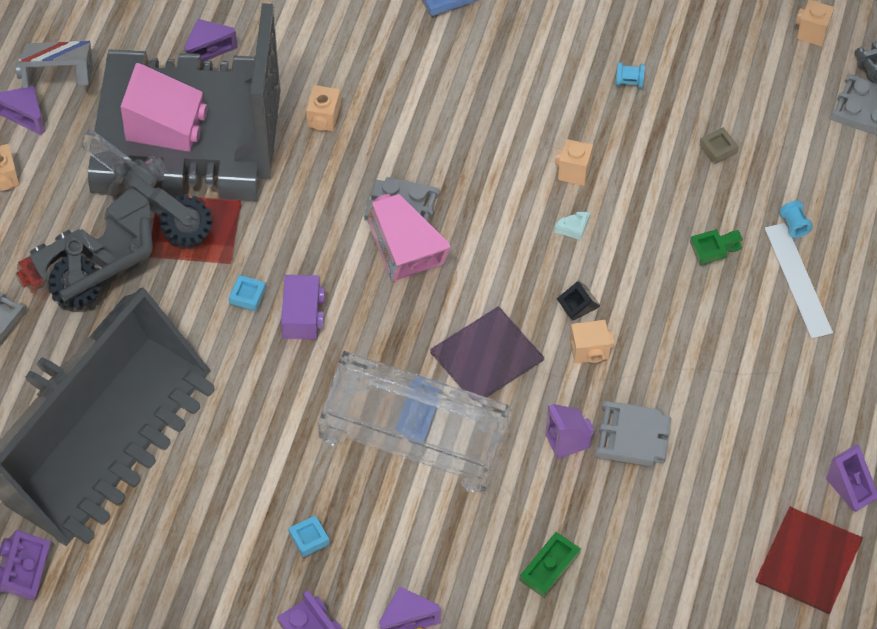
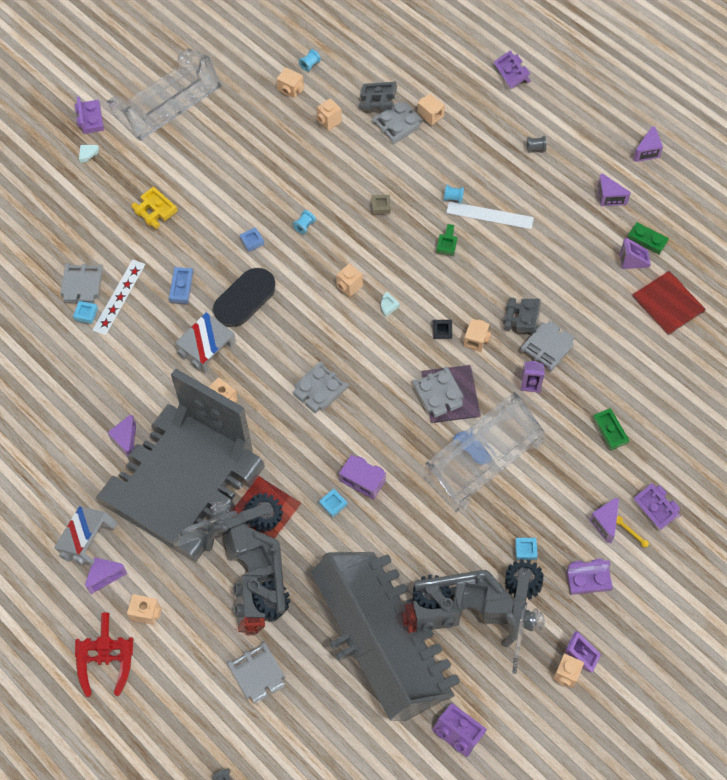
camera: 60 degrees left, 5 degrees up
(161, 110) = (179, 484): bright pink slope -> none
(208, 500) = (478, 590): none -> dark grey piece
(385, 53) = (204, 341): none -> light grey panel
(405, 237) = (355, 394): bright pink slope -> none
(476, 337) = (438, 392): none -> light grey plate
(478, 68) = (244, 297): none -> black tile
(565, 33) = (251, 239): none -> medium blue plate
(660, 388) = (528, 315): none -> dark grey plate

